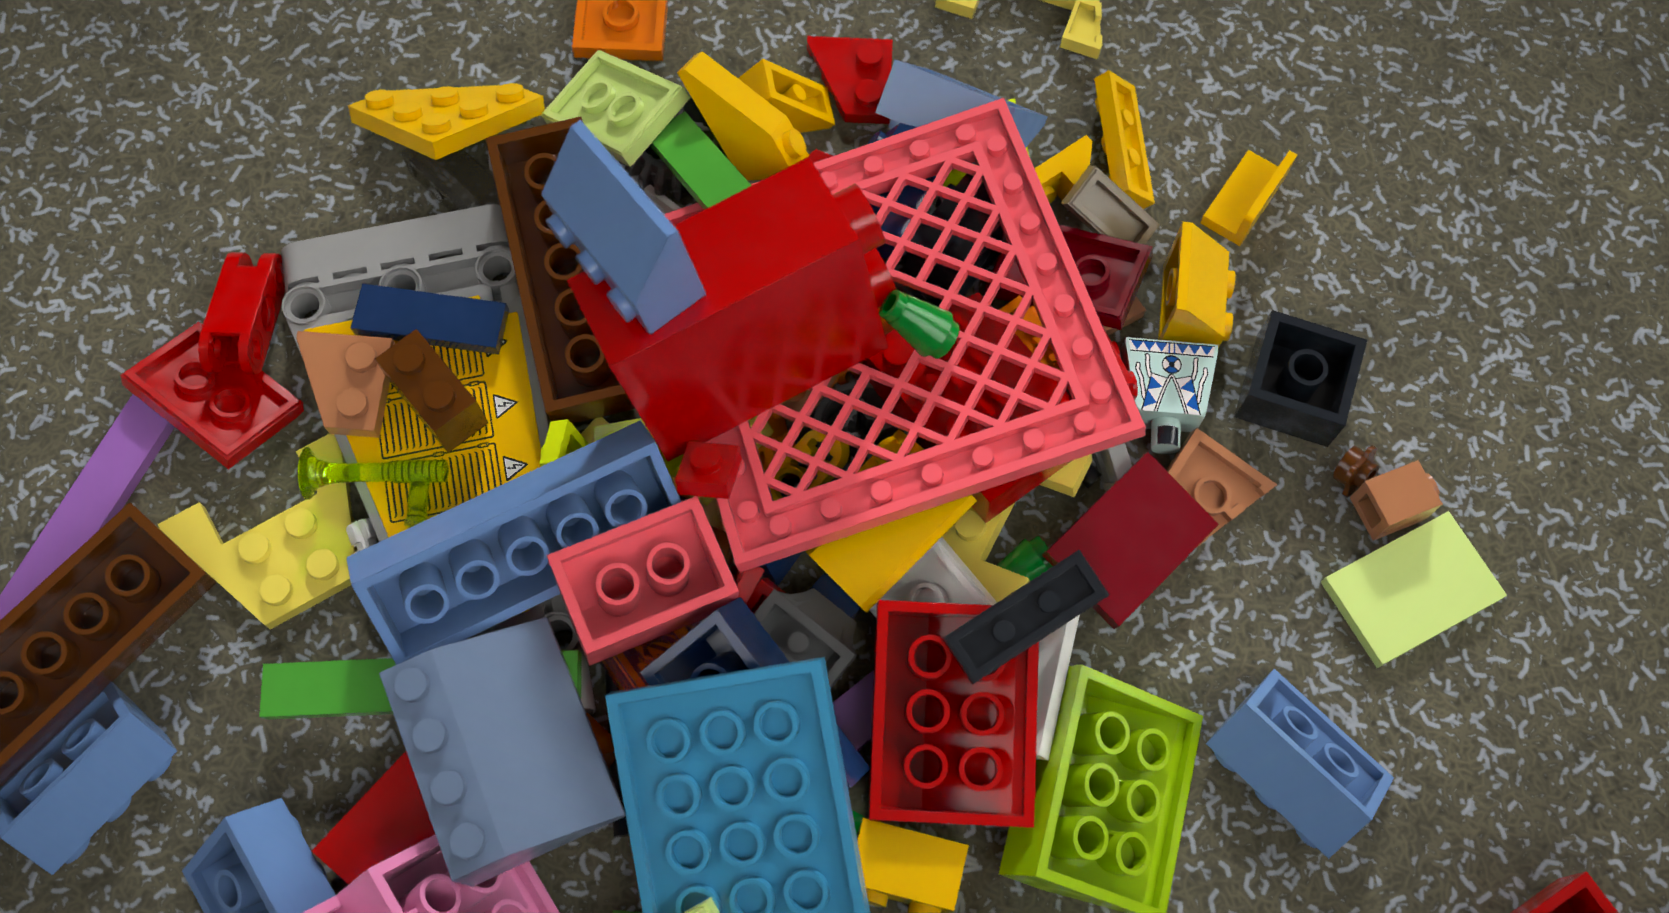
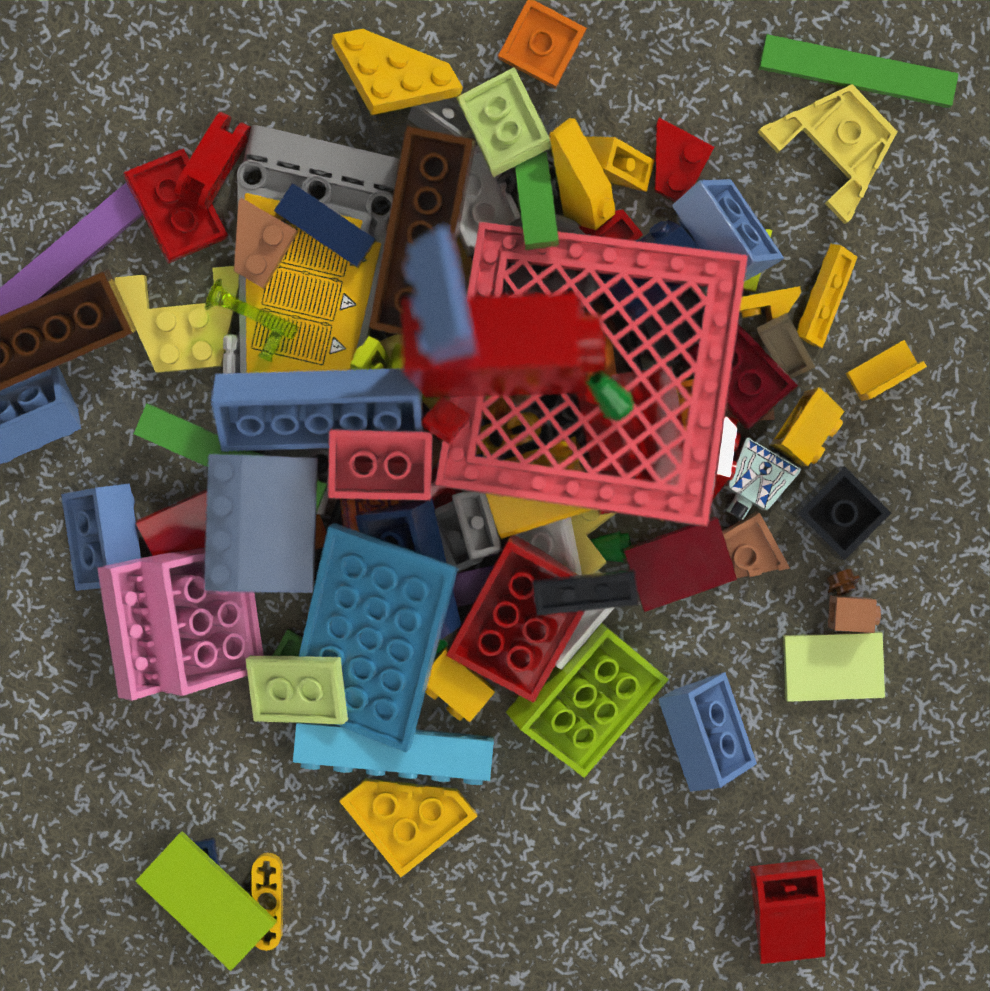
camera: 30 degrees right, 20 degrees up
(432, 390) = (306, 280): reddish brown brick -> none
(823, 606) = (476, 524): none -> light grey slope

